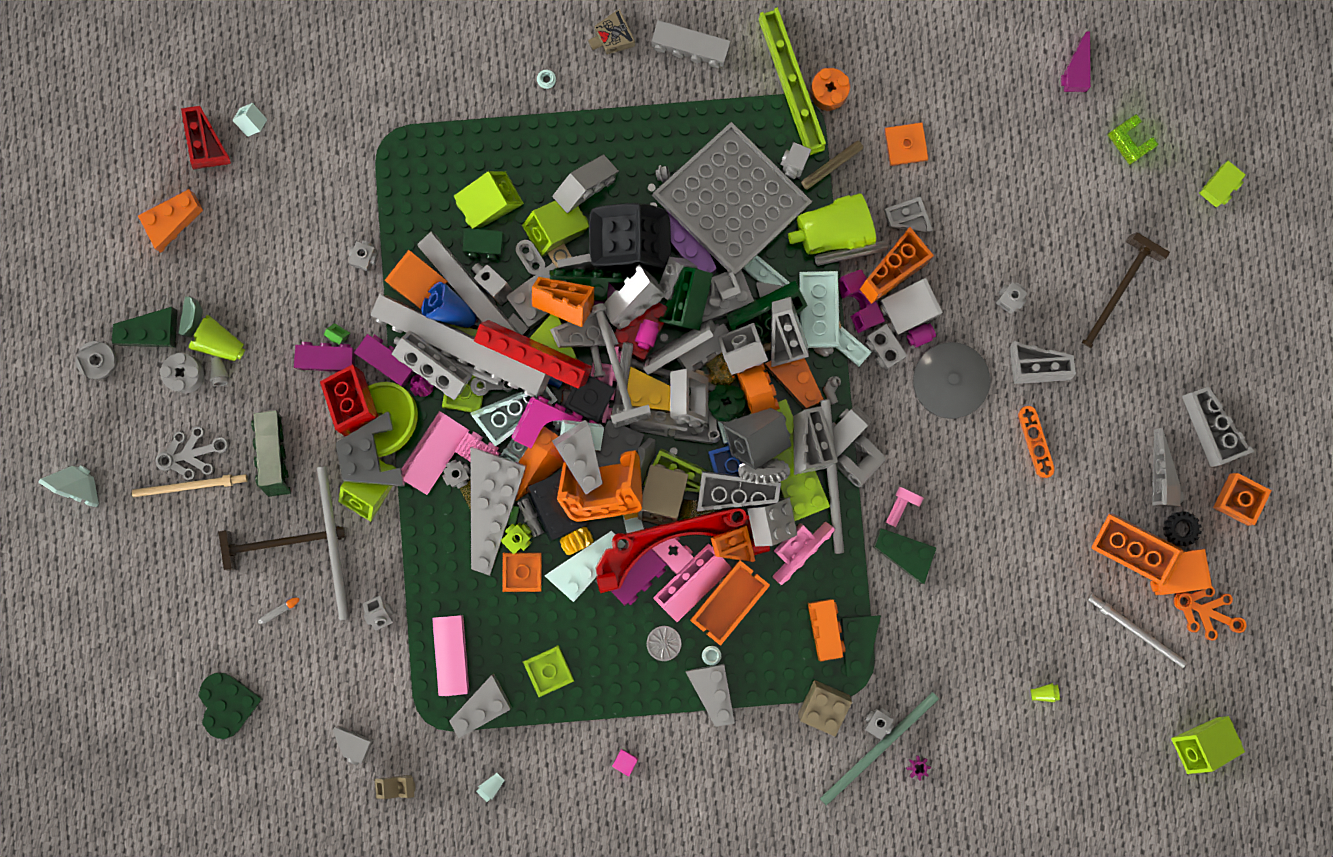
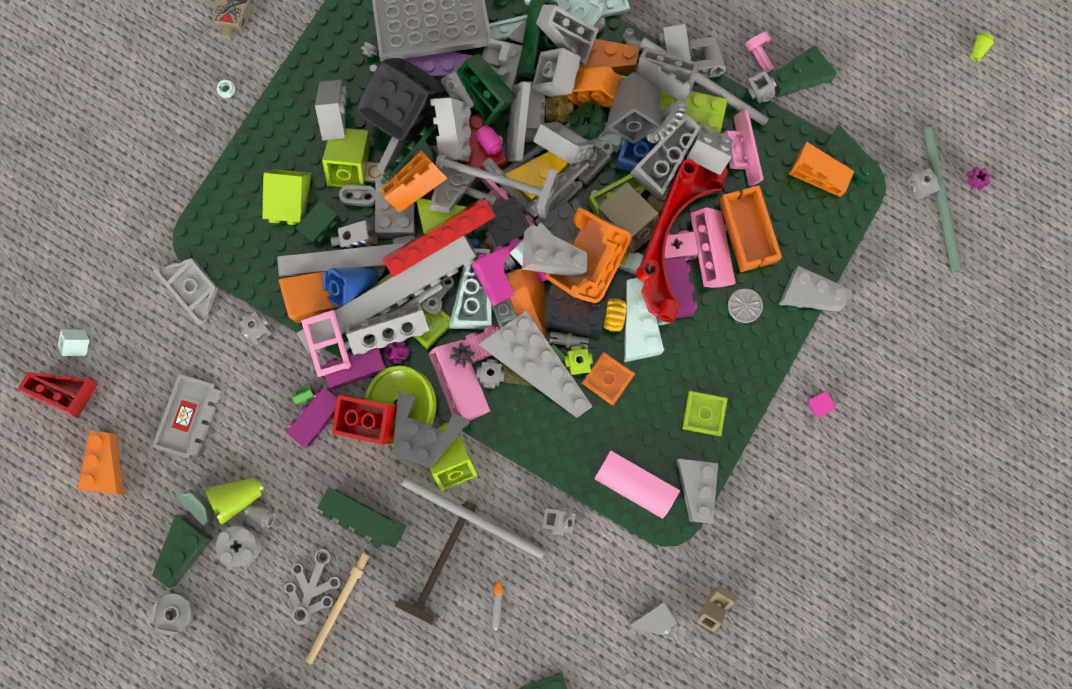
camera: 55 degrees left, 5 degrees down
(253, 253) = (185, 417): none -> light grey hinge
(359, 178) = (190, 287): none -> light grey wing
(395, 332) = (313, 347): none -> bright pink window
(457, 445) = (460, 350): none -> black gear
(489, 788) = (768, 529): light aqua cone -> none
(711, 655) = (781, 275): light aqua plate -> none
(734, 544) = (706, 191): orange wing -> none
(824, 708) = (884, 215): dark tan brick -> none
(865, 522) = (762, 87): none -> light grey brick

